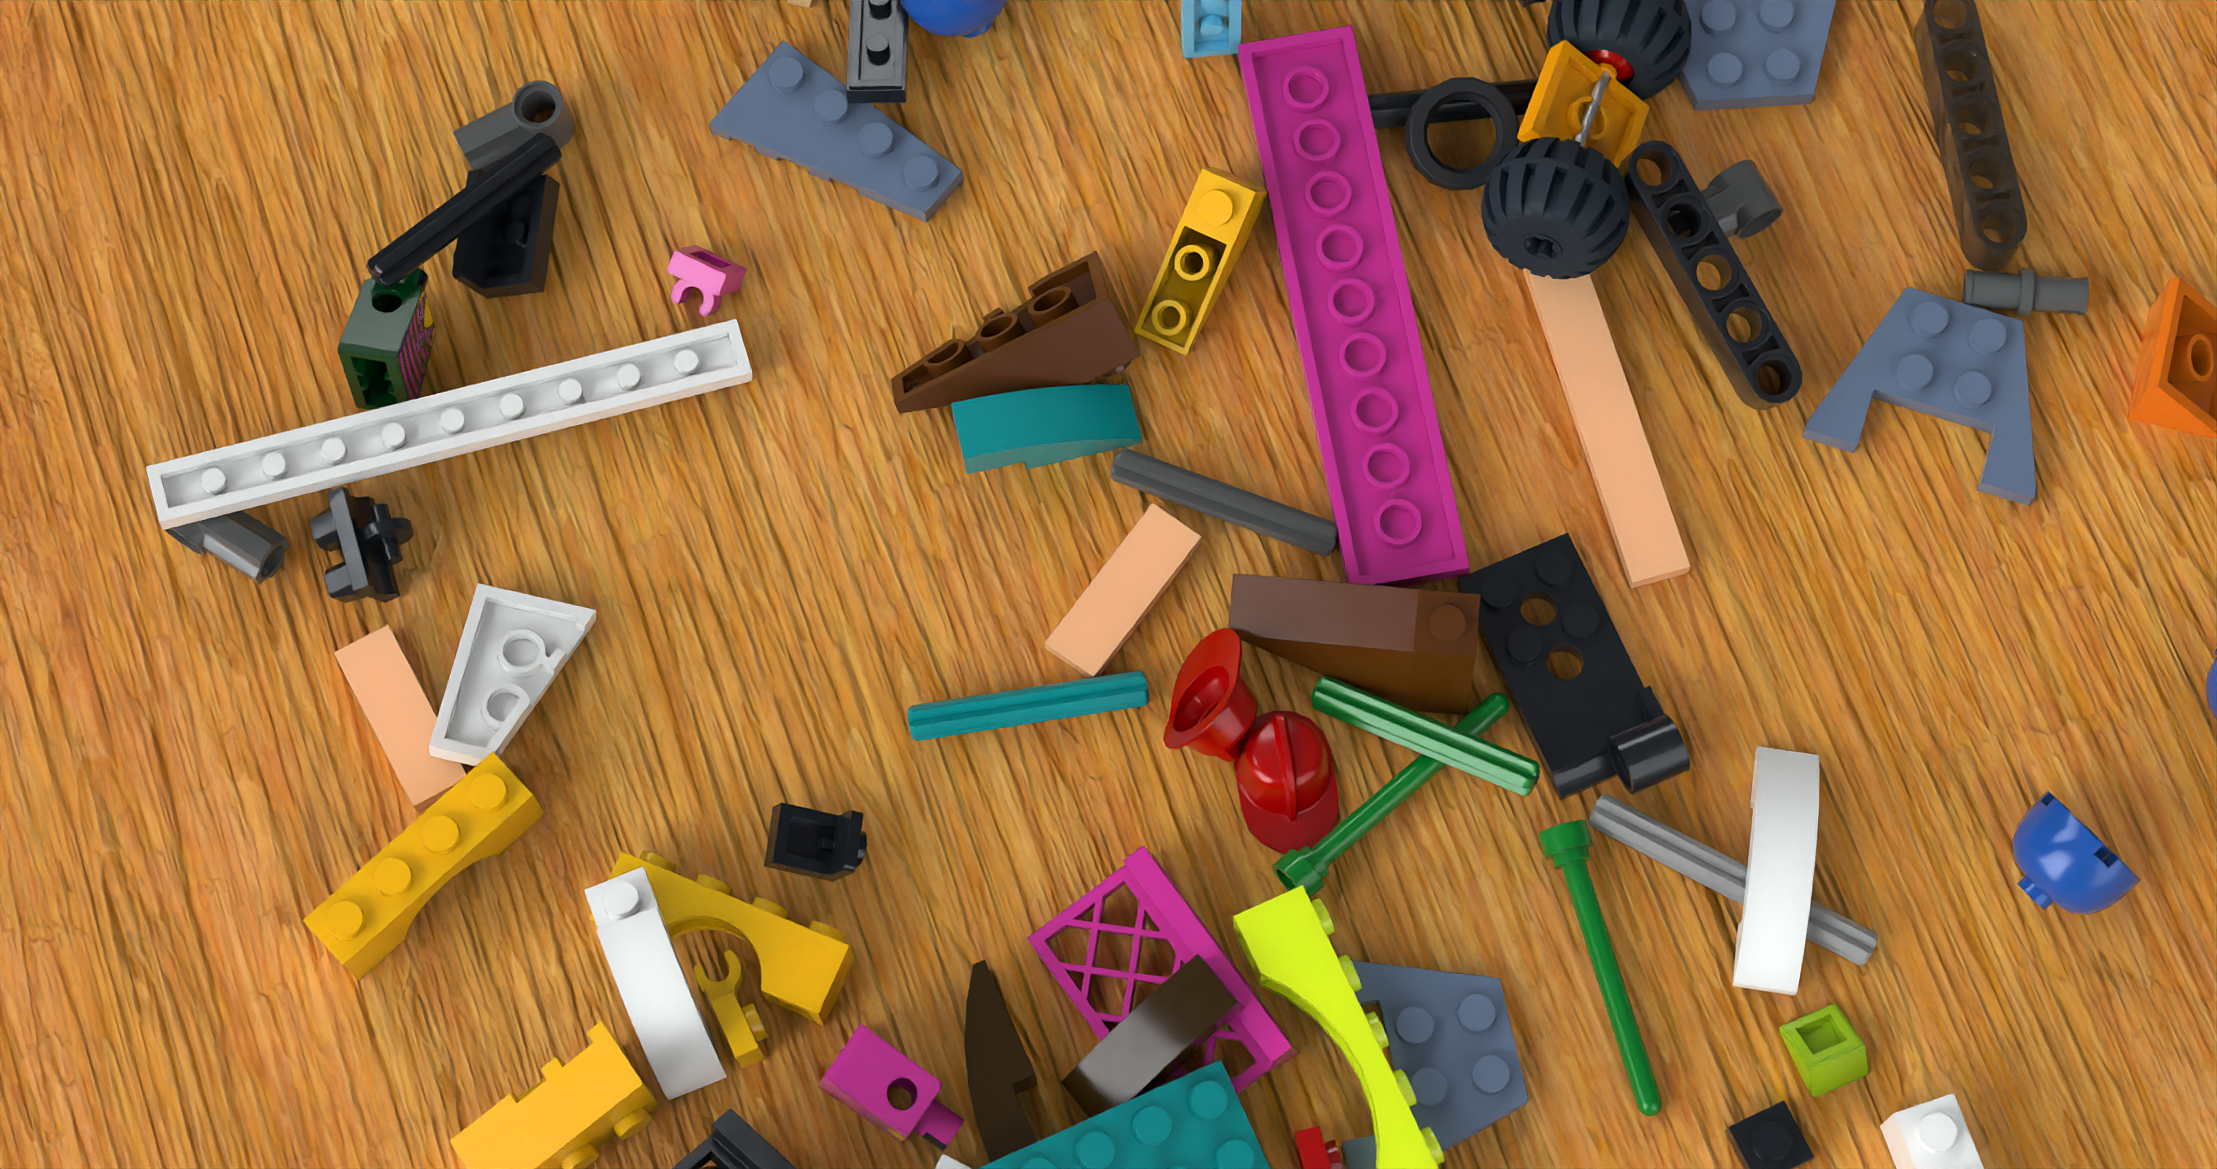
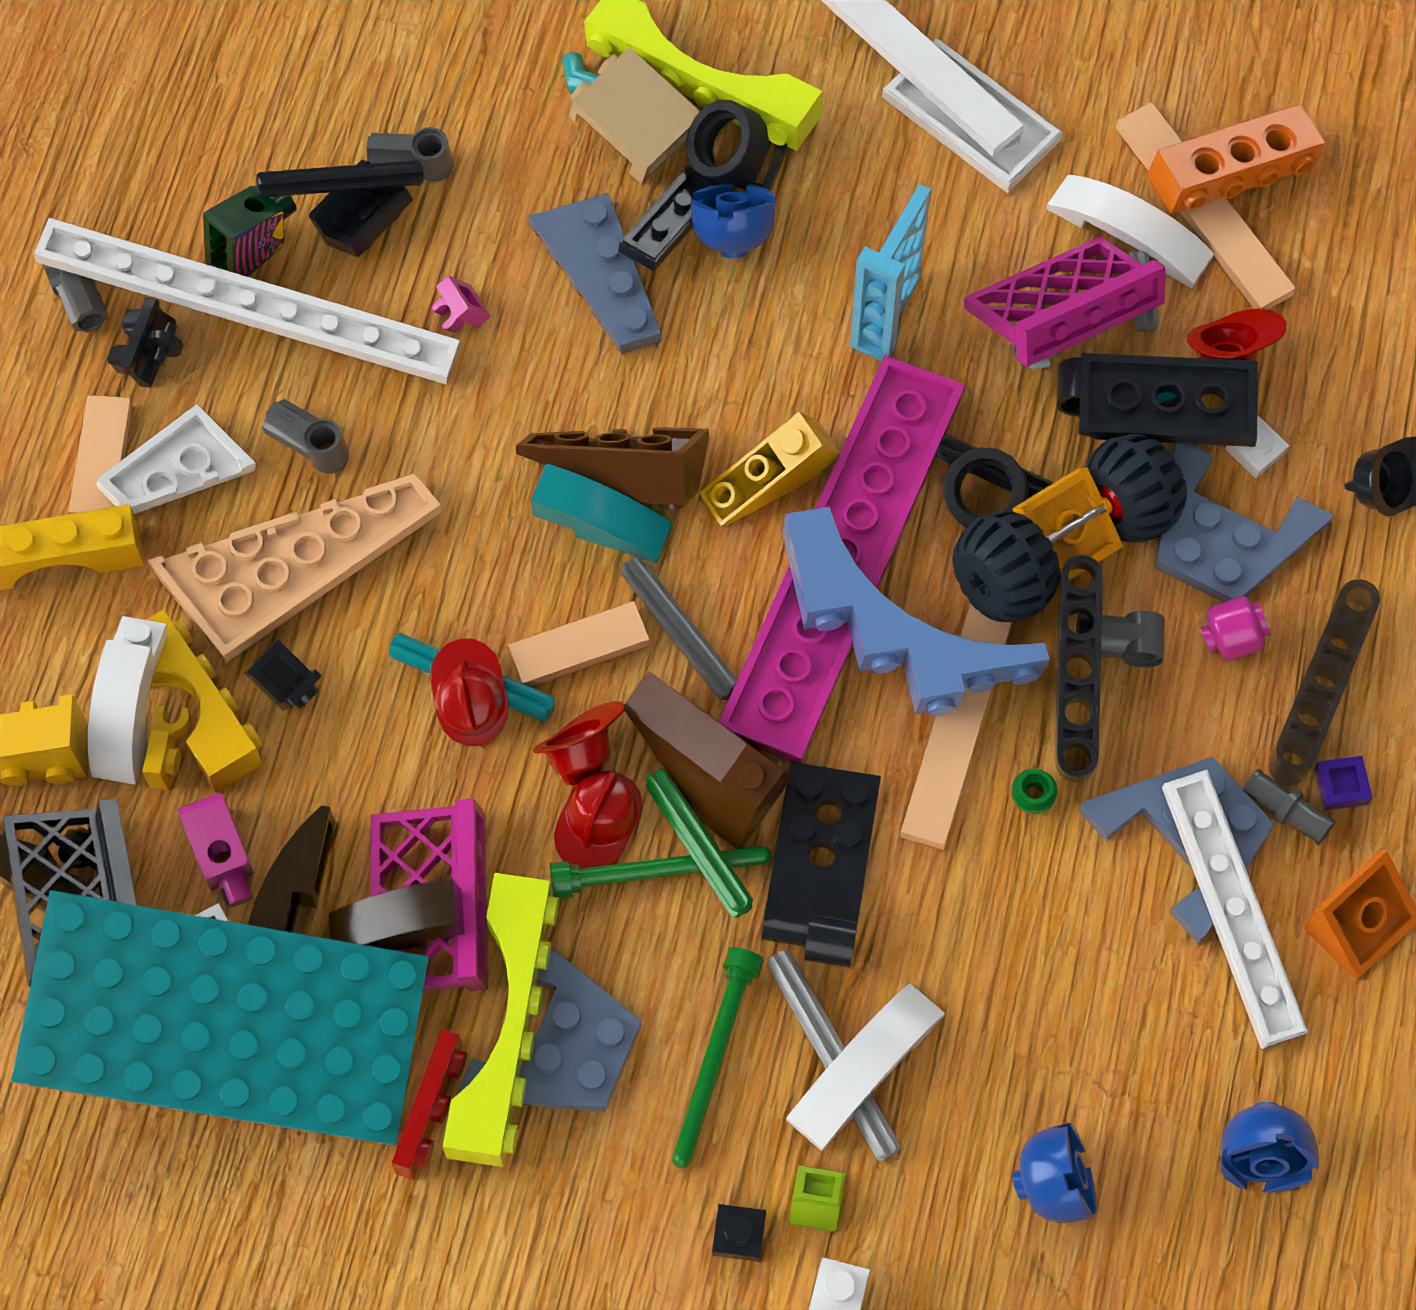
camera: 30 degrees right, 5 degrees down
(630, 540) = (306, 435): none -> dark grey piece
(710, 721) = (281, 566): none -> light nougat wing
(1040, 724) = (469, 692): none -> red piece
(1469, 371) = (884, 635): none -> medium blue arch
(1748, 429) = (1040, 780): none -> green plate
(1836, 126) = (1235, 628): none -> dark pink head
(2049, 442) = (1234, 909): none -> white tile
(2064, 230) = (1343, 783): none -> dark purple plate

